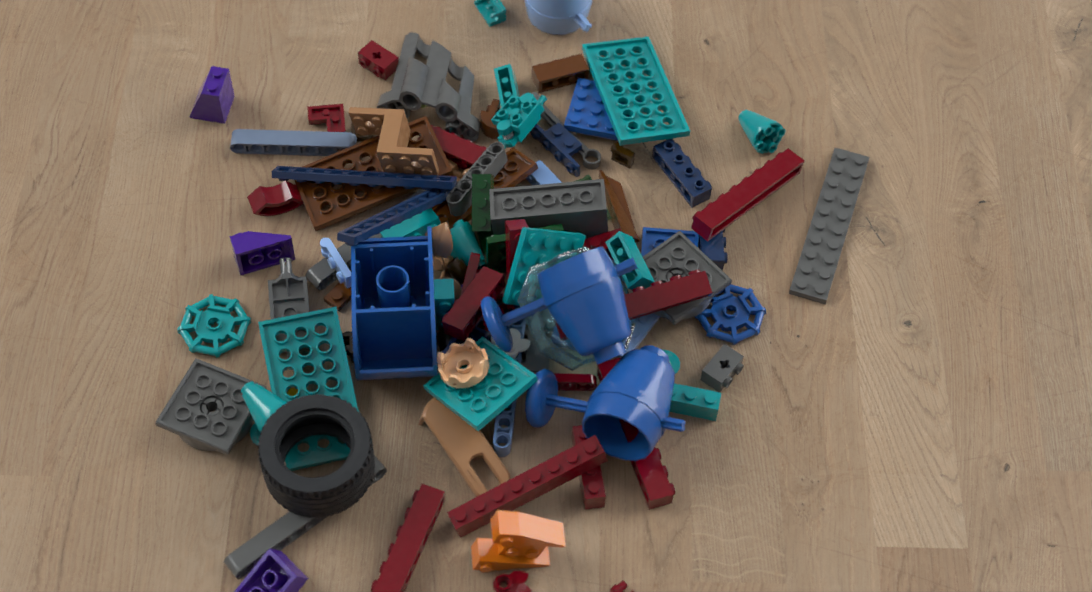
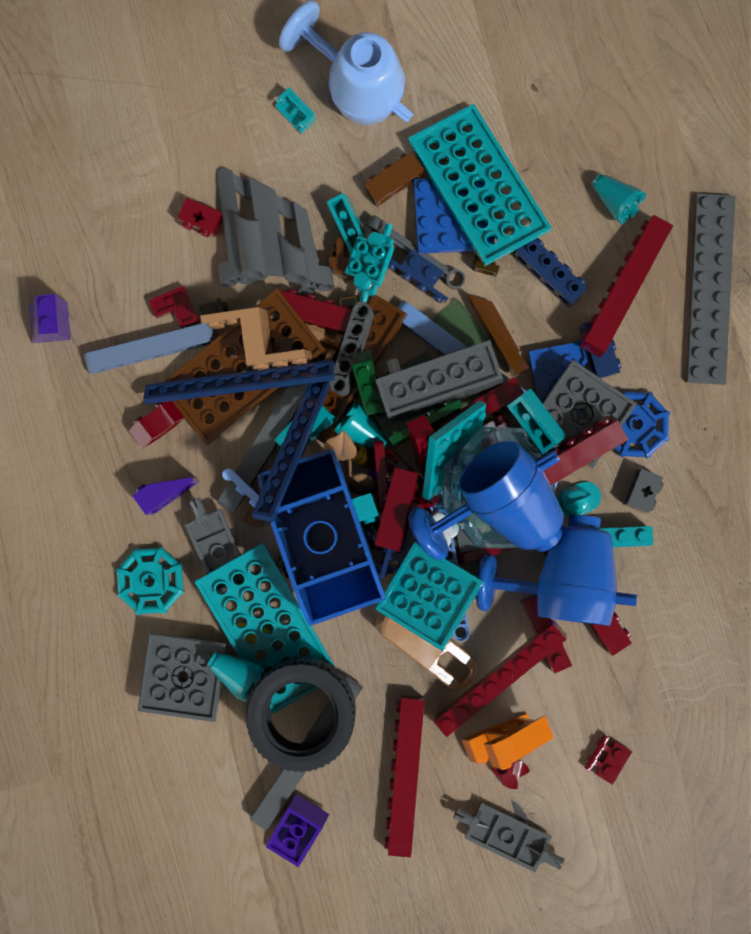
camera: 10 degrees left, 30 degrees up
(459, 355) = (395, 586): light nougat plate -> none

